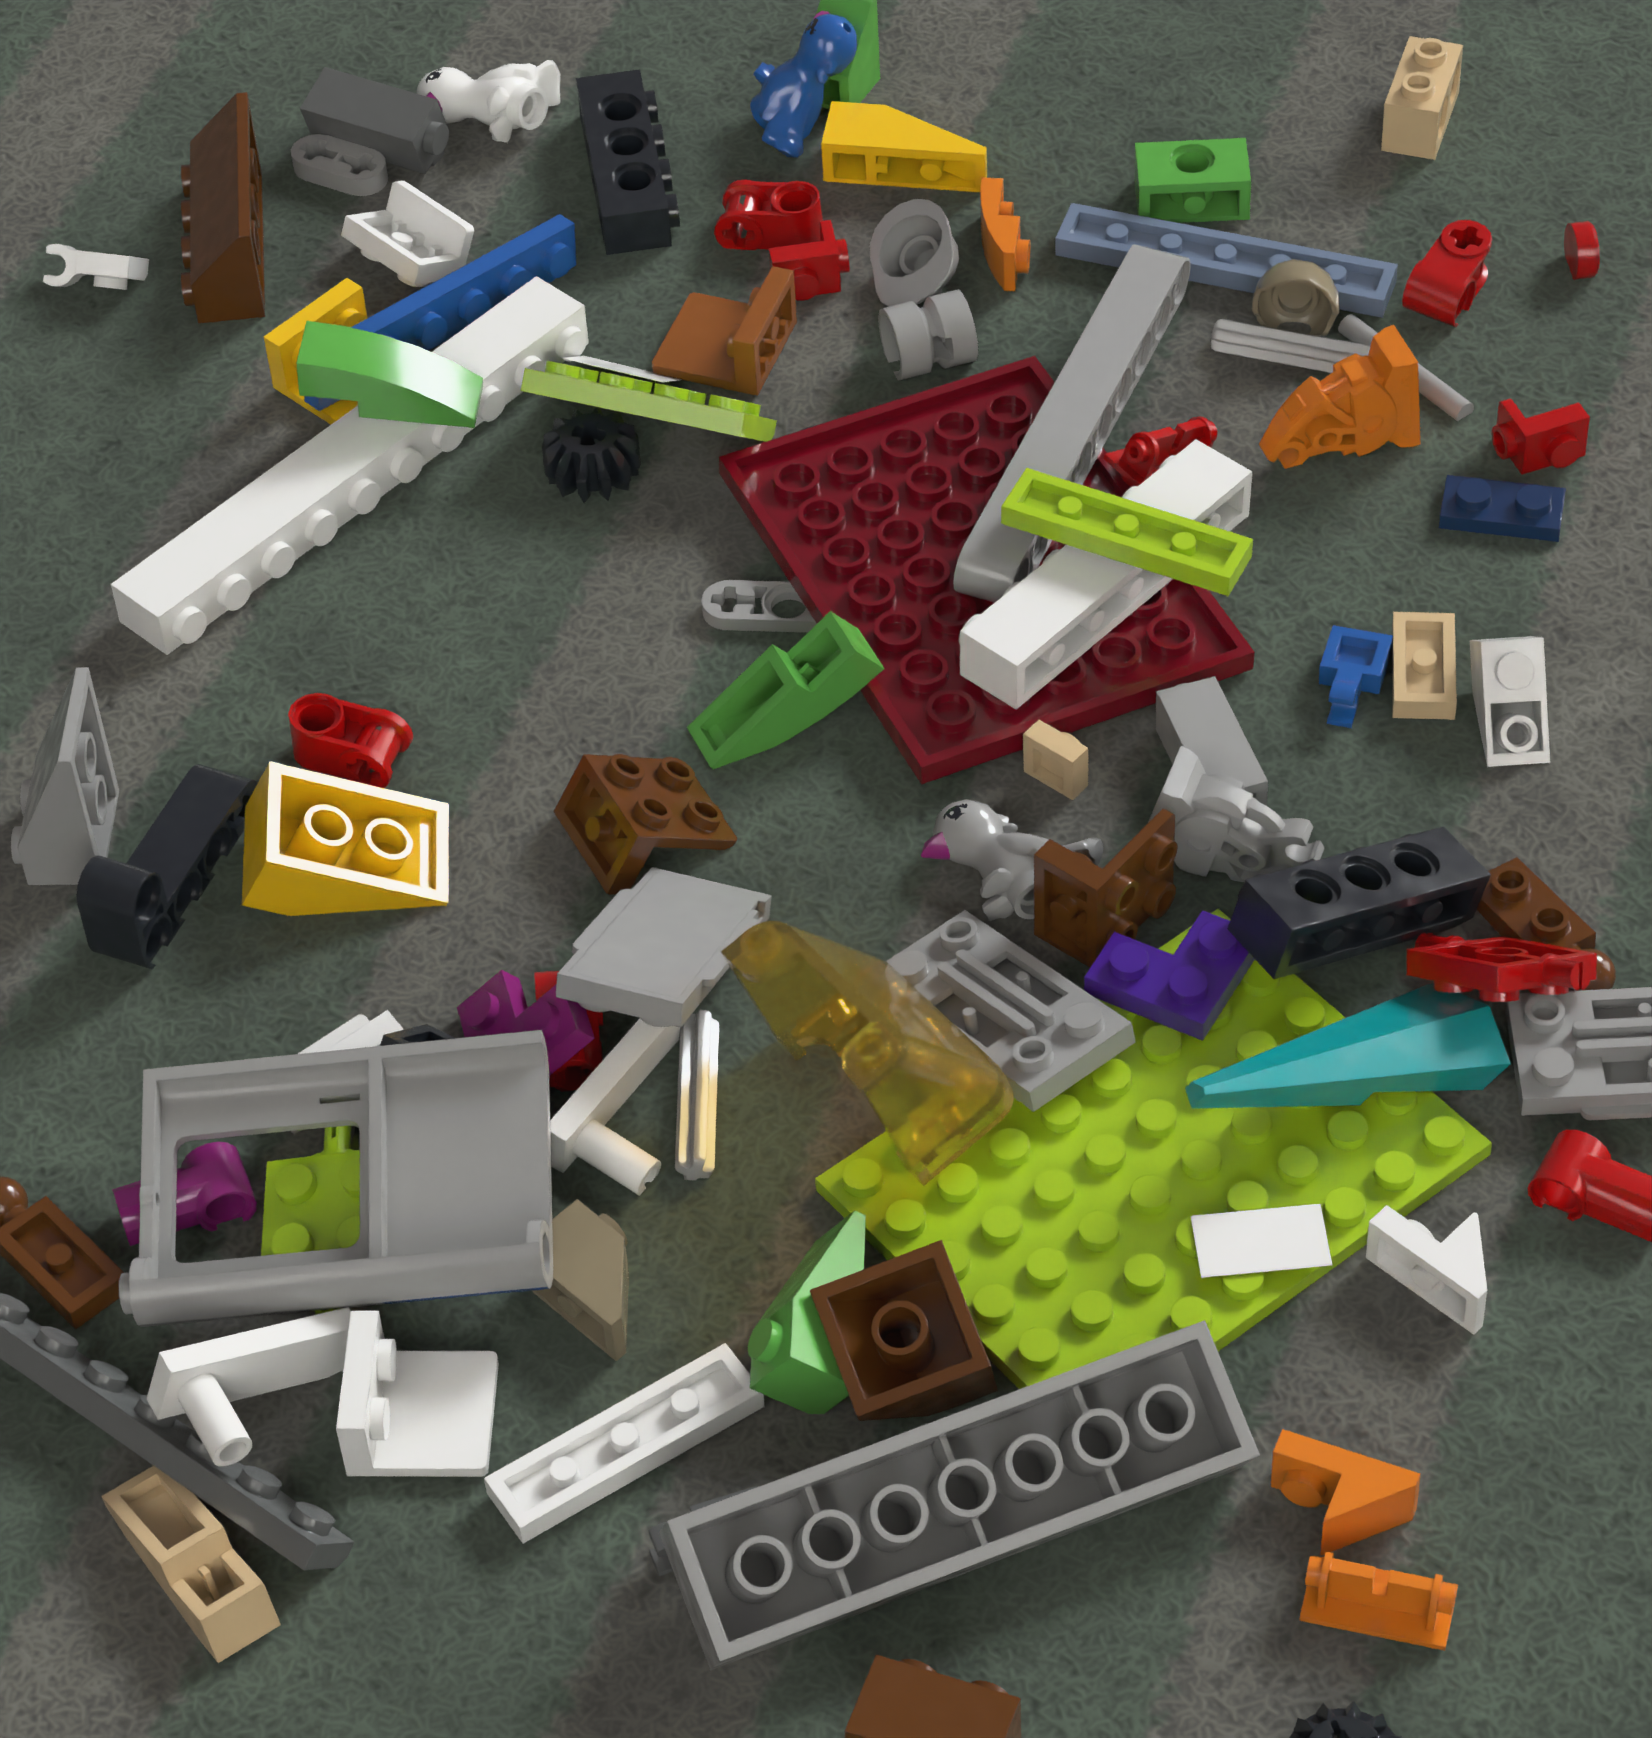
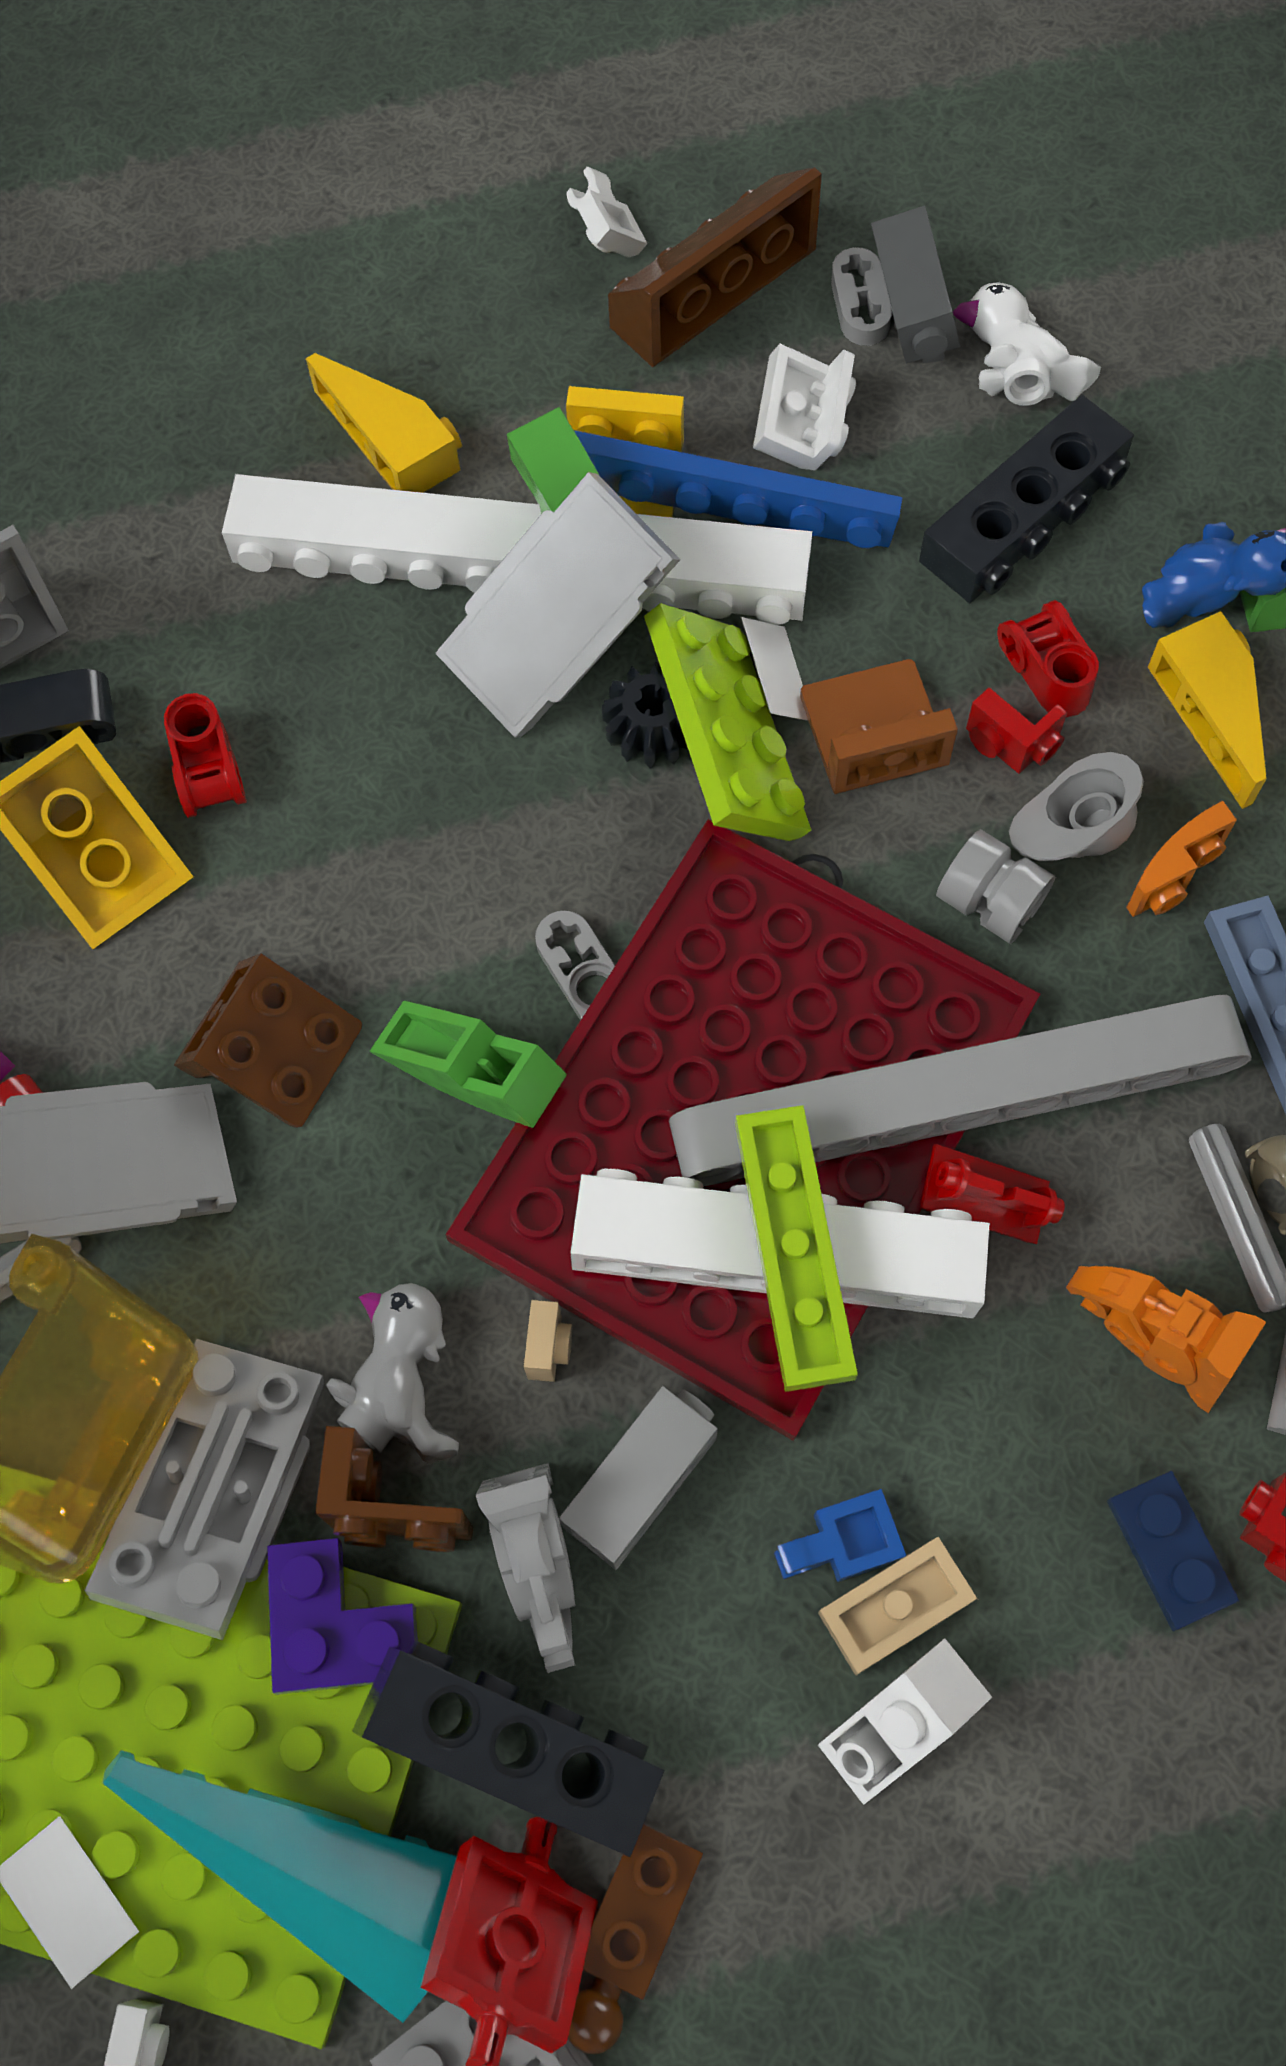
camera: 55 degrees right, 20 degrees up
(151, 486) = (389, 426): none -> yellow slope
(459, 435) = (556, 604): none -> light grey piece

